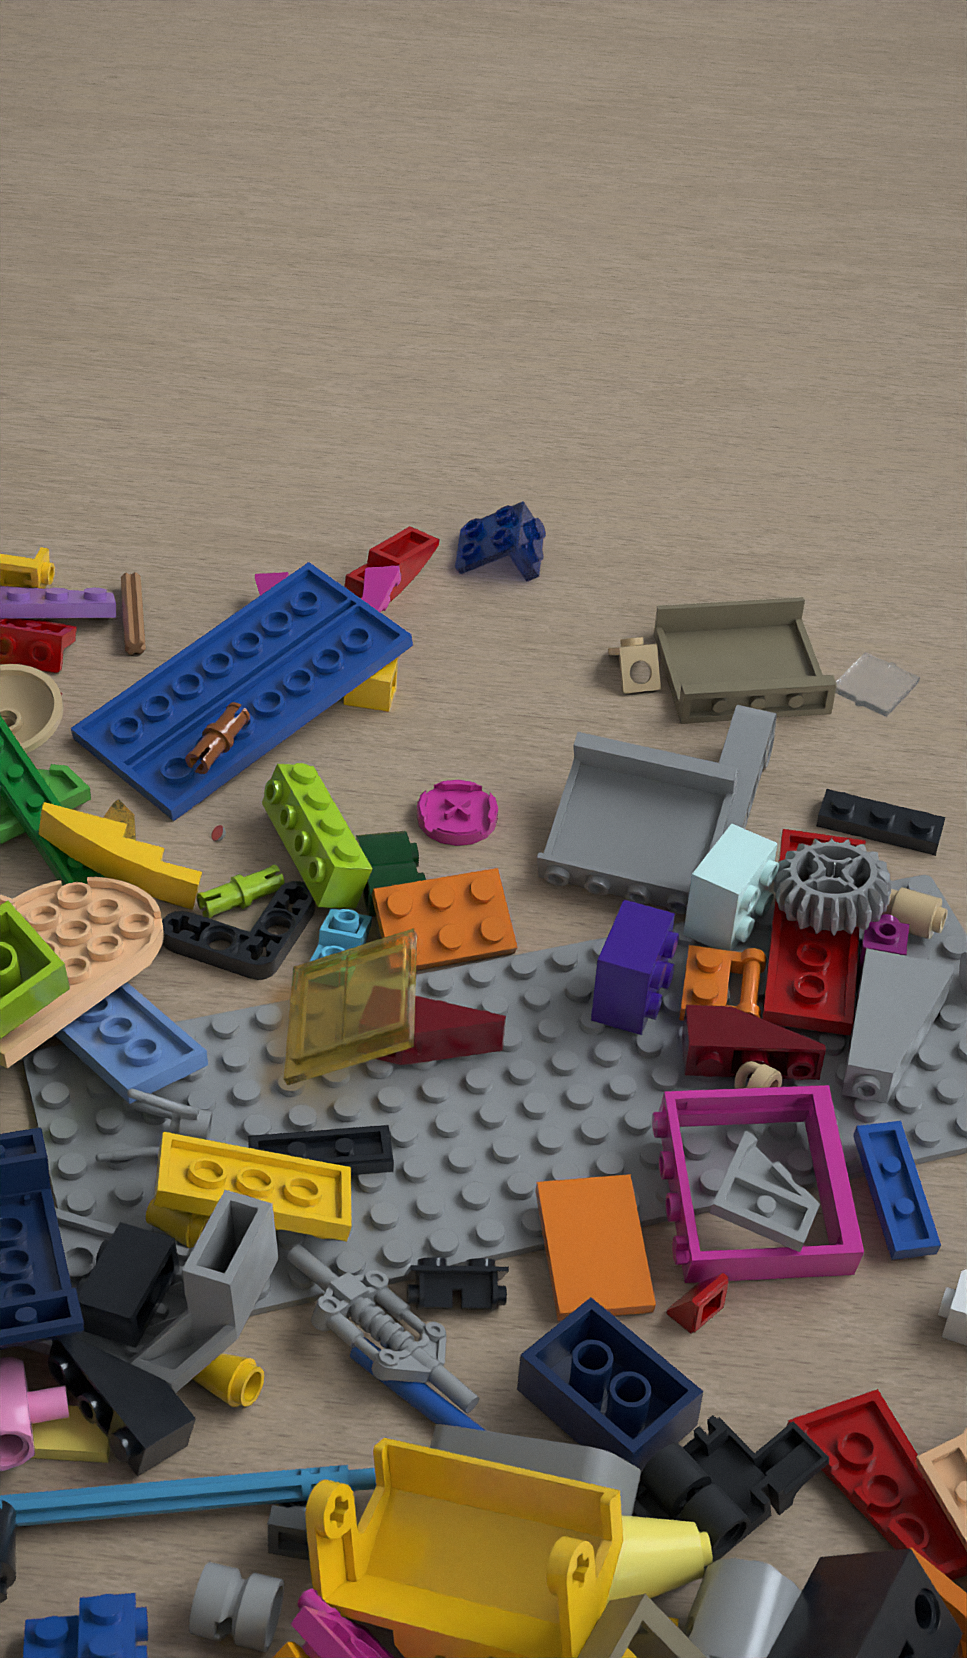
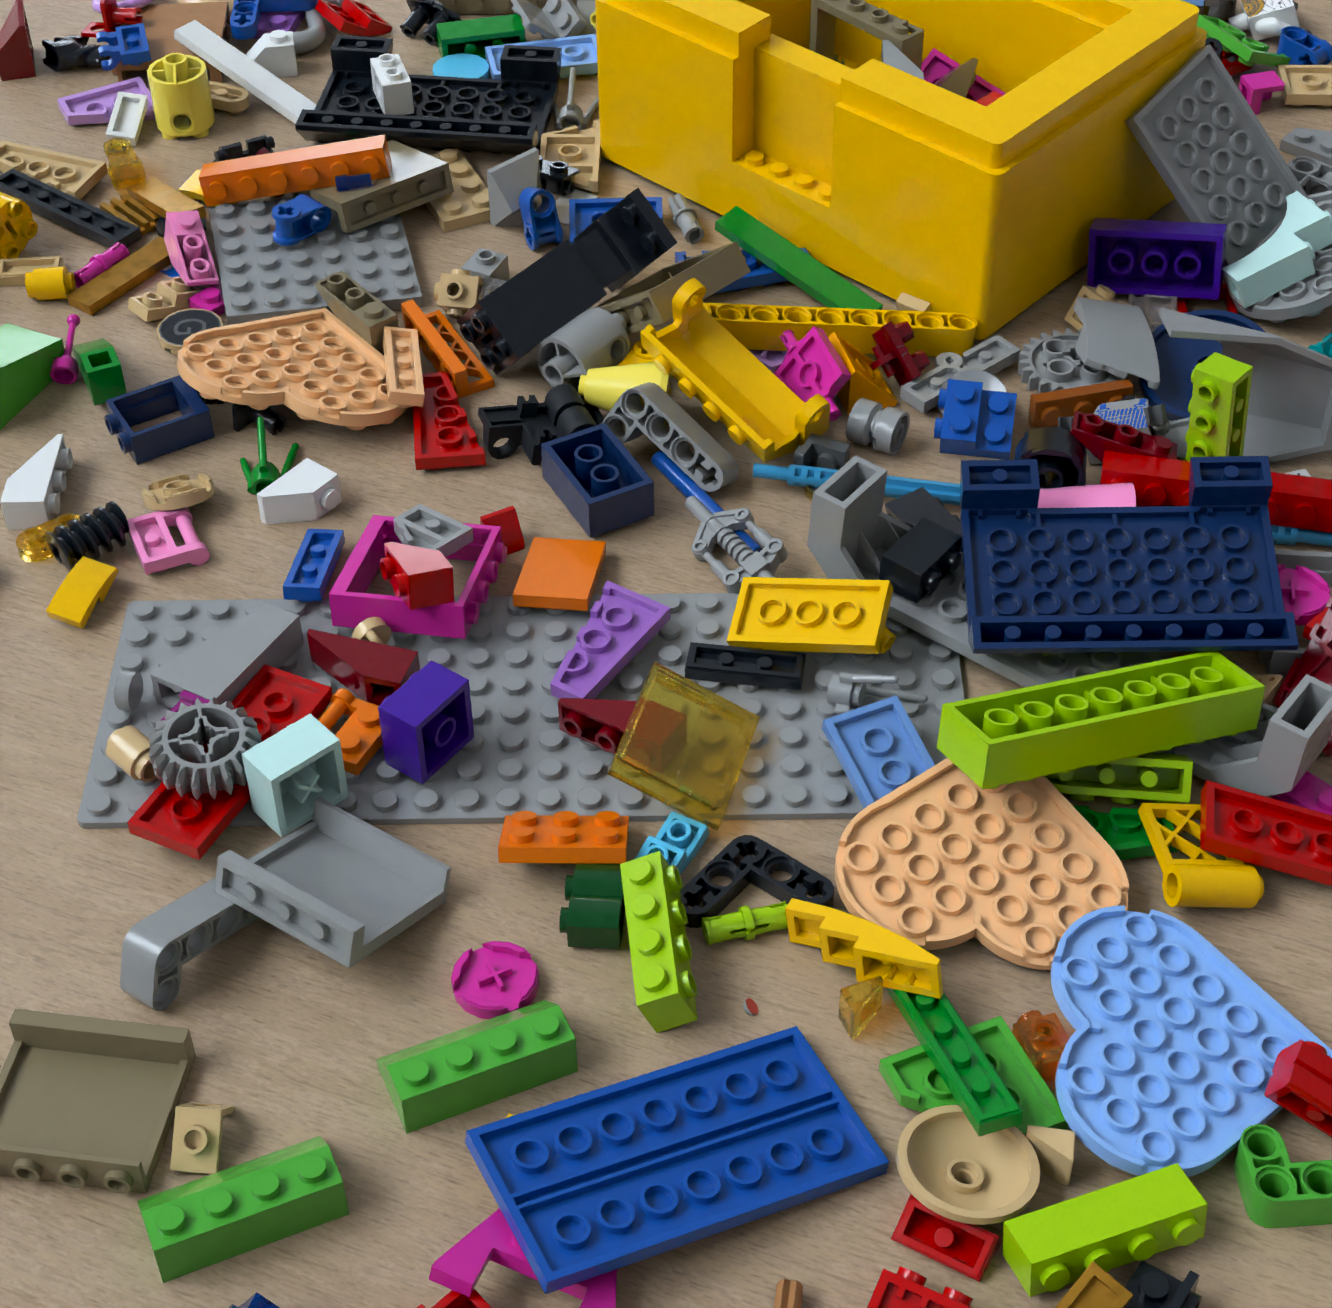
camera: 160 degrees left, 0 degrees up
(217, 738) = (729, 1062): dark orange pin -> none
(439, 736) = (479, 1064): none -> bright green slope
(476, 1282) = (671, 572): black hinge -> none
(488, 1146) = (612, 637): none -> medium lavender wing
(571, 620) = (243, 1207): none -> bright green slope
(732, 1099) = (418, 575): none -> red slope
(880, 821) = (79, 885): black plate -> none

